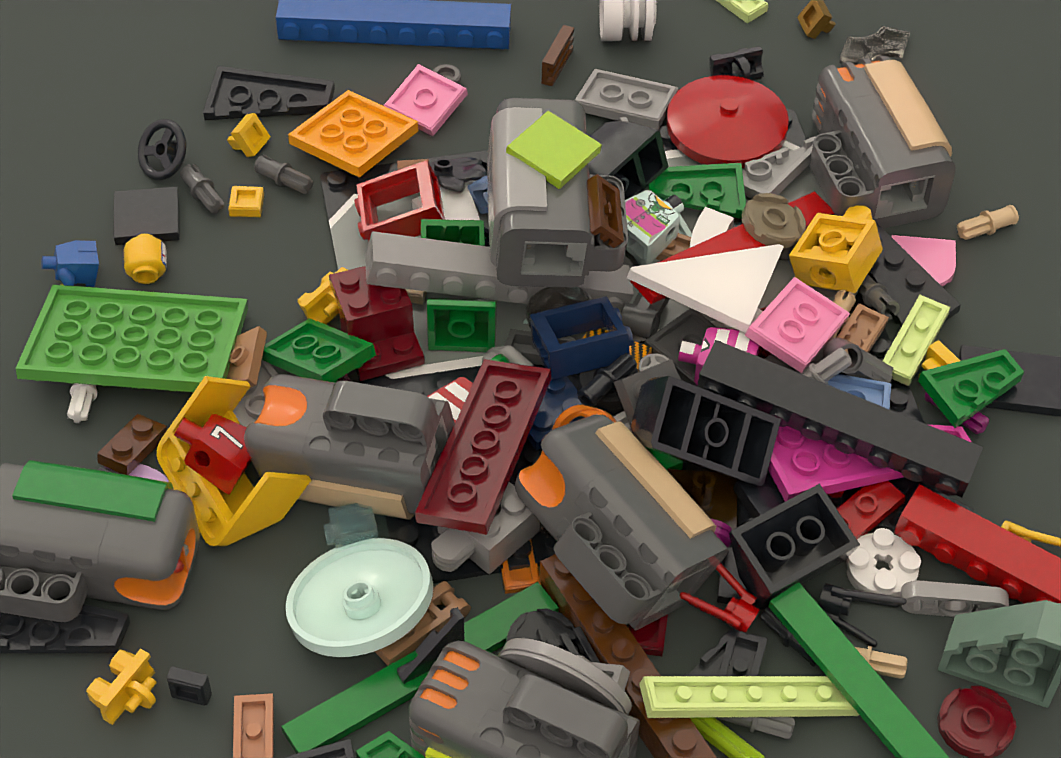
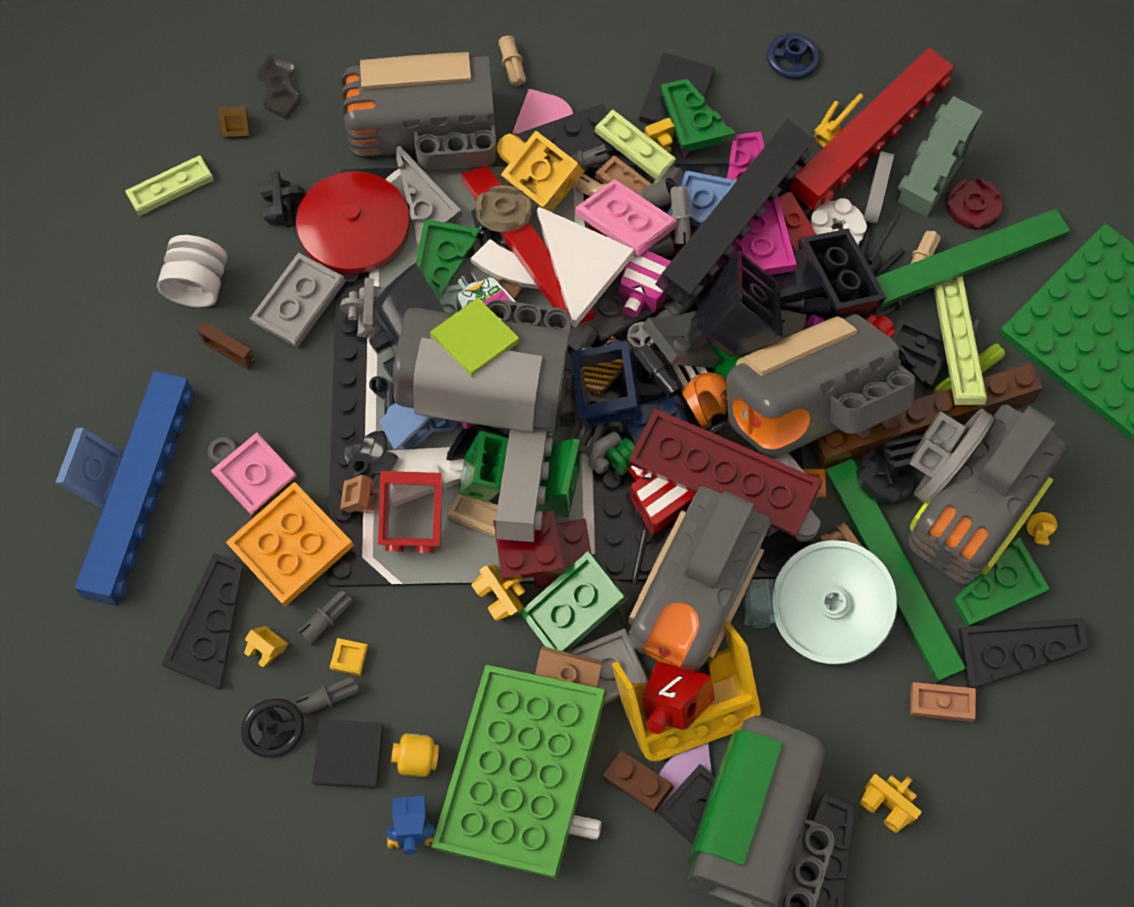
camera: 80 degrees left, 15 degrees up
(189, 686) = (897, 748): black tile -> none
(432, 646) = (893, 547): black tile -> none
(605, 210) = (538, 315): reddish brown tile -> none

